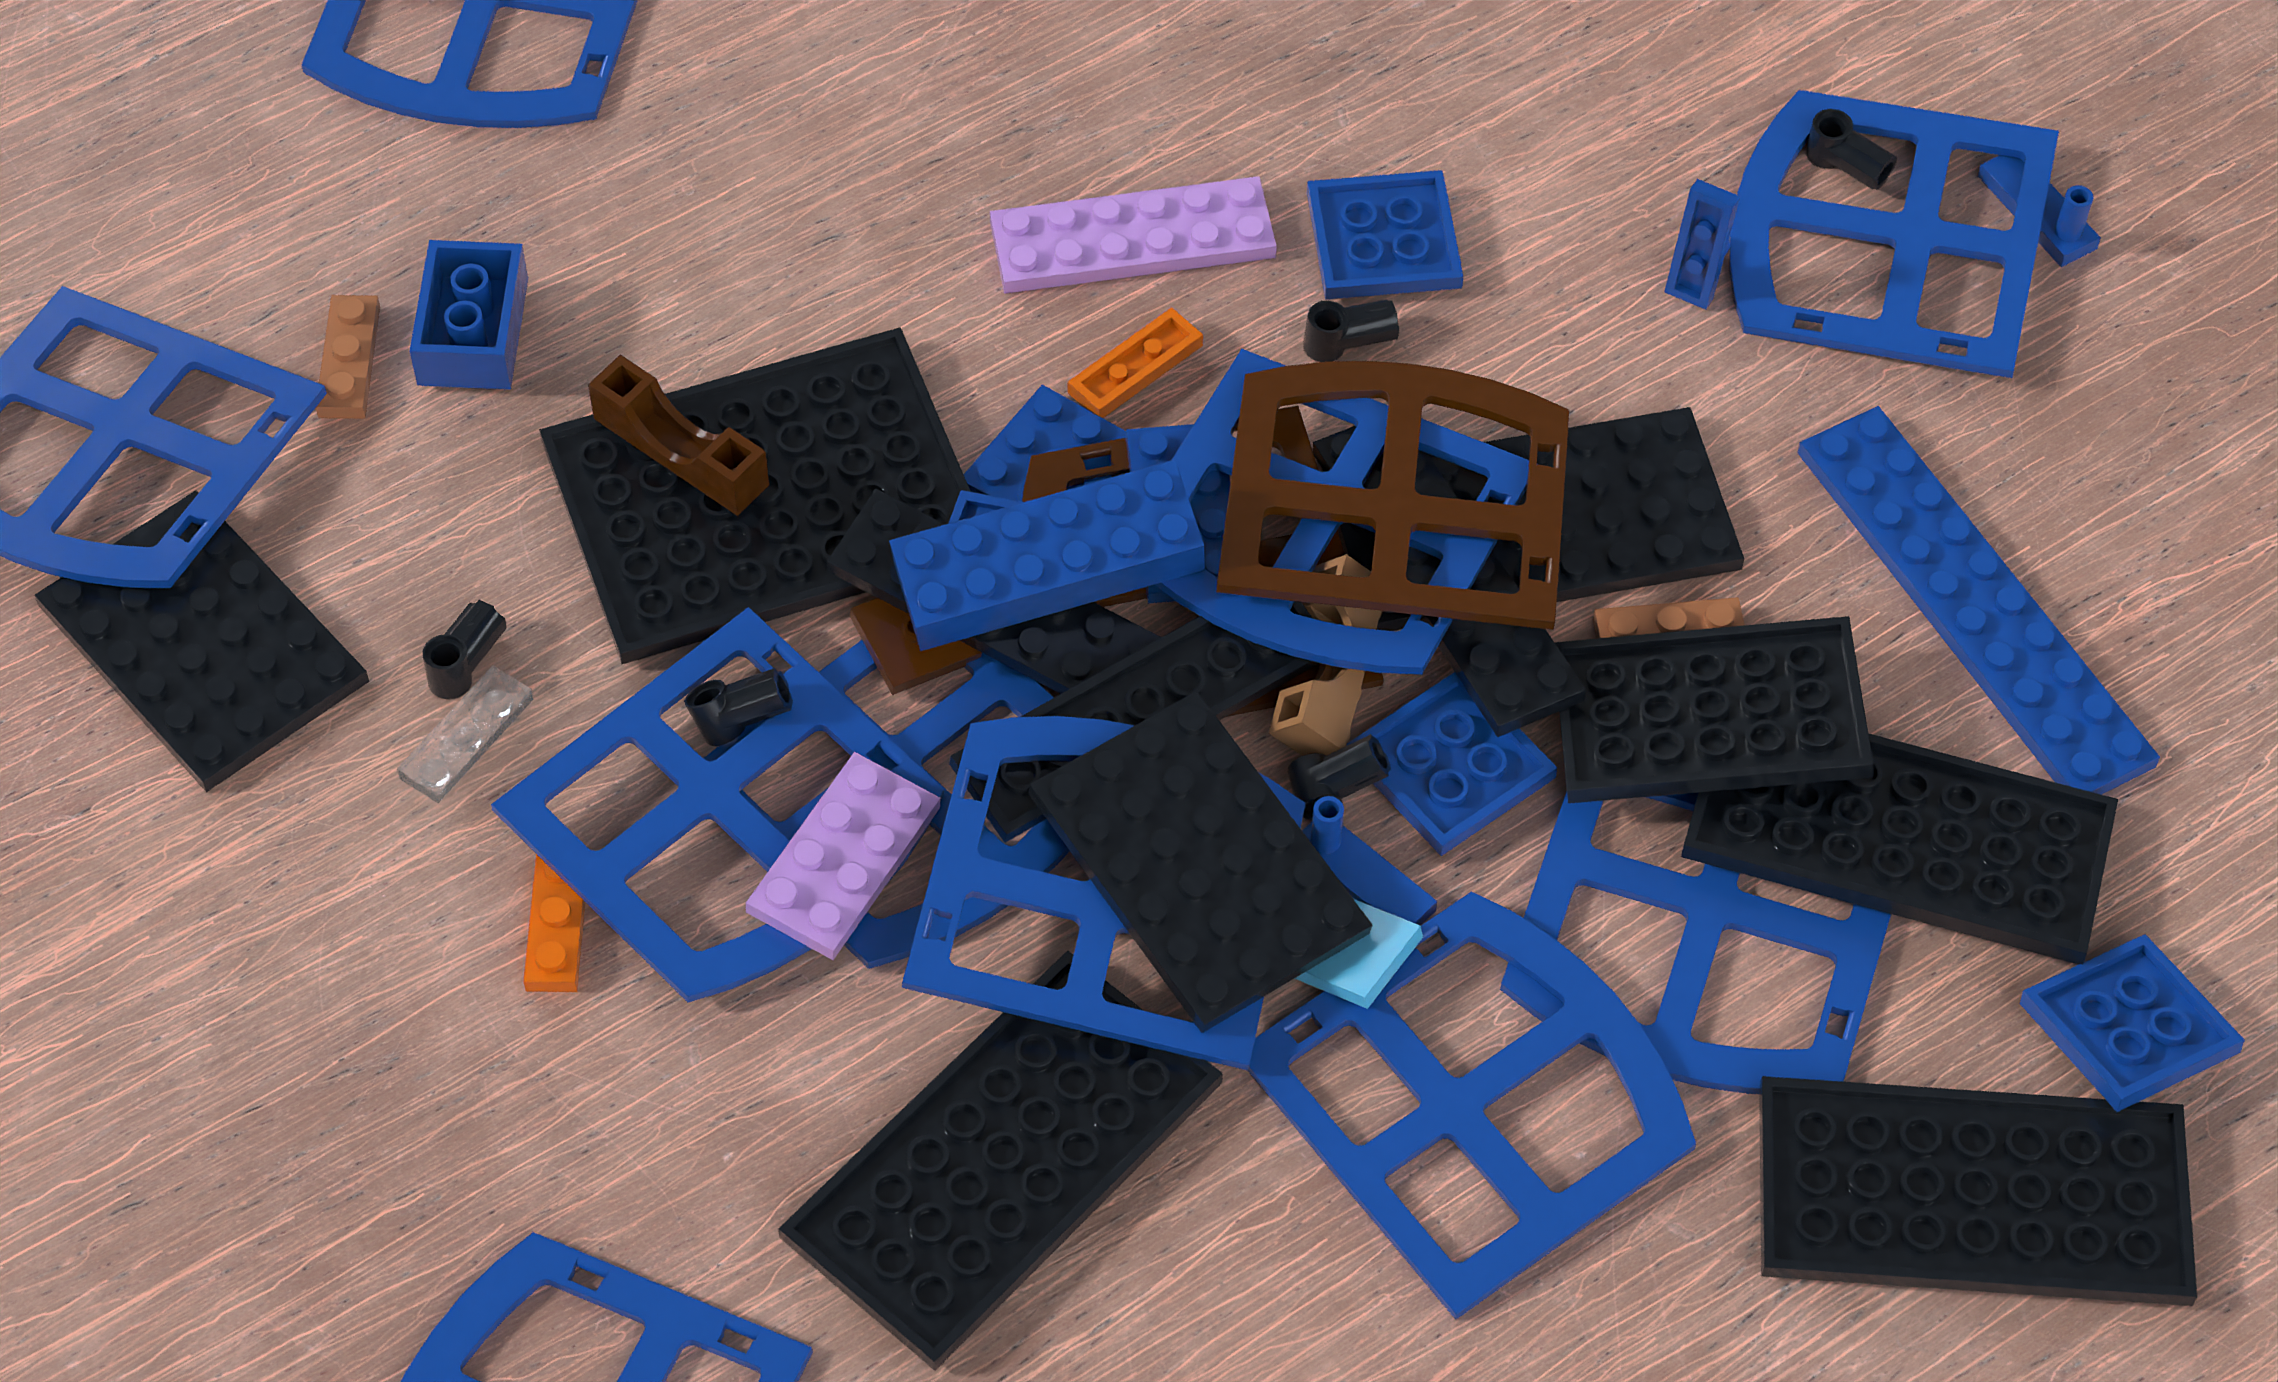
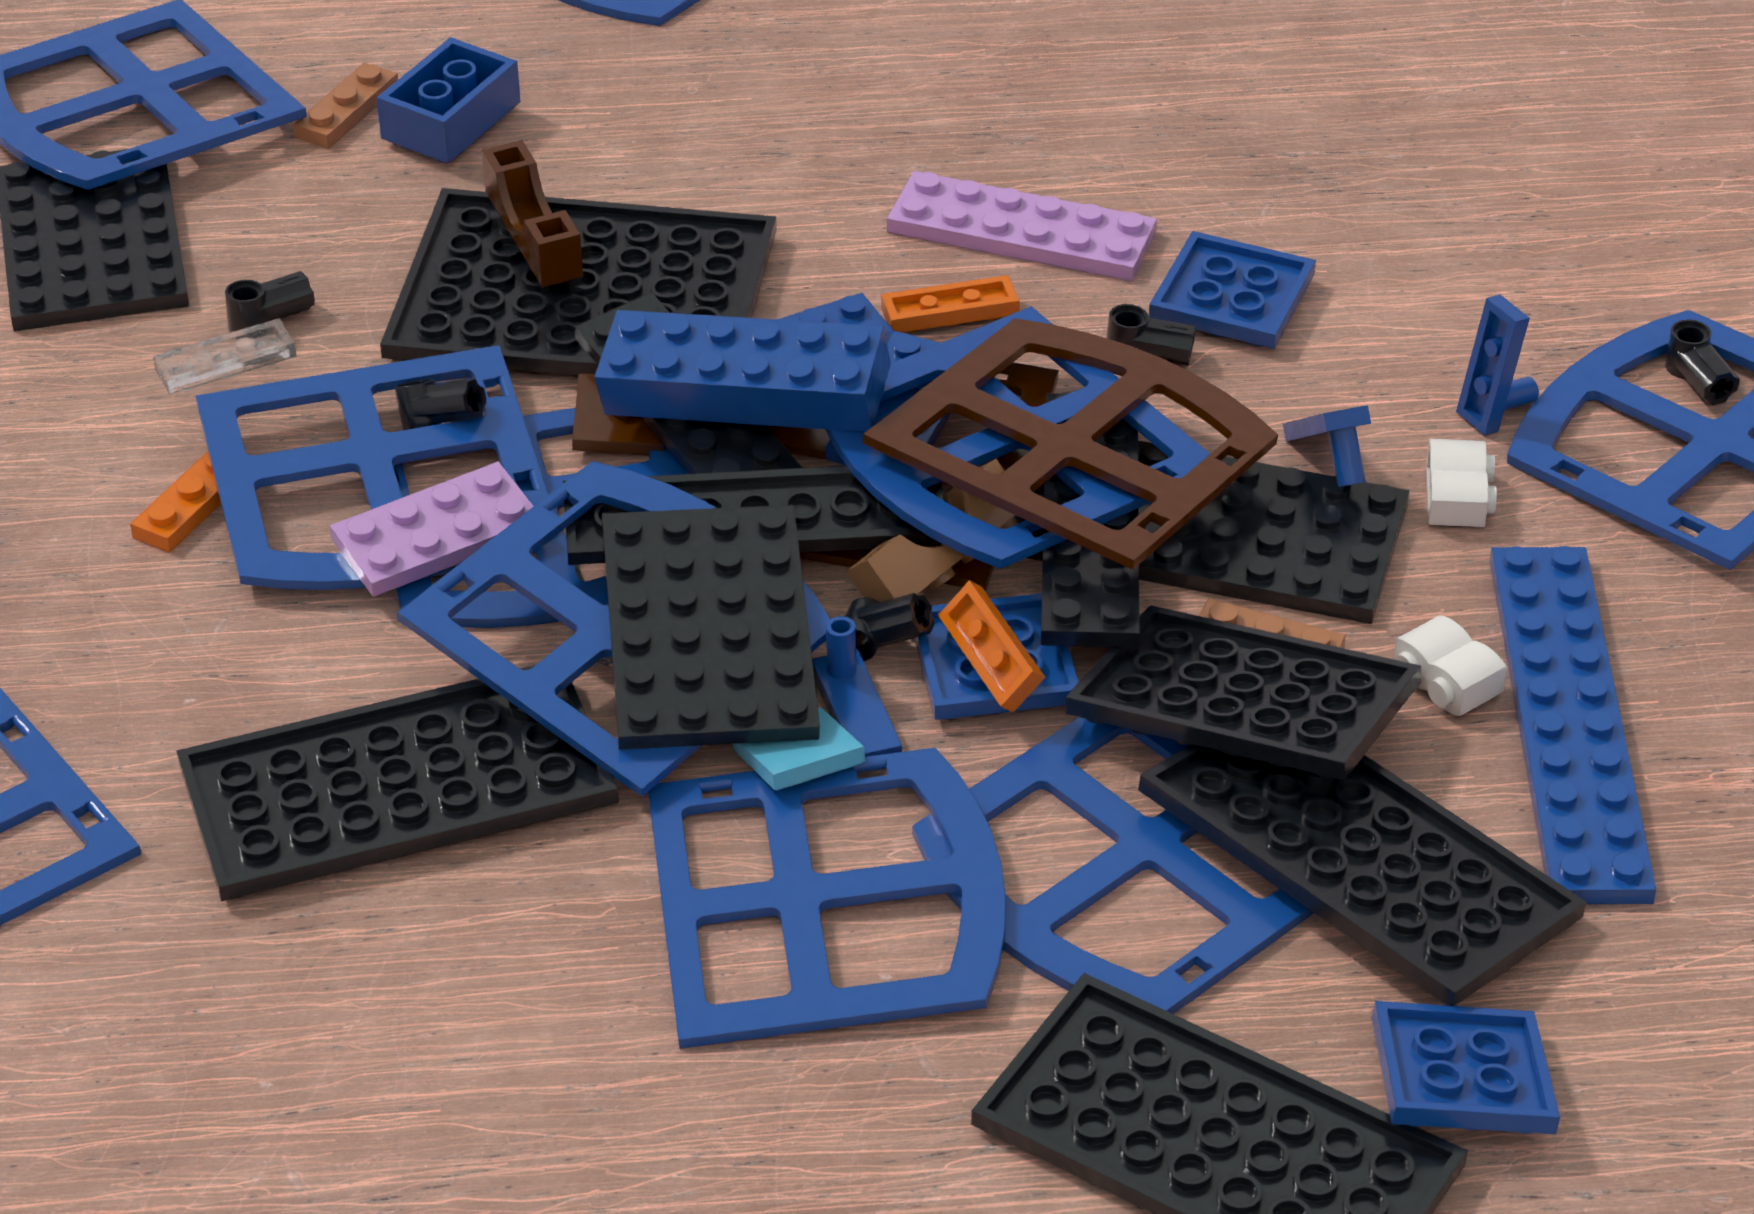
camera: 30 degrees right, 15 degrees down
(1462, 762) = (991, 646): none -> orange plate
(1603, 373) = (1343, 439): none -> blue piece
(1728, 381) = (1459, 483): none -> white brick
(1845, 586) = (1453, 666): none -> white brick

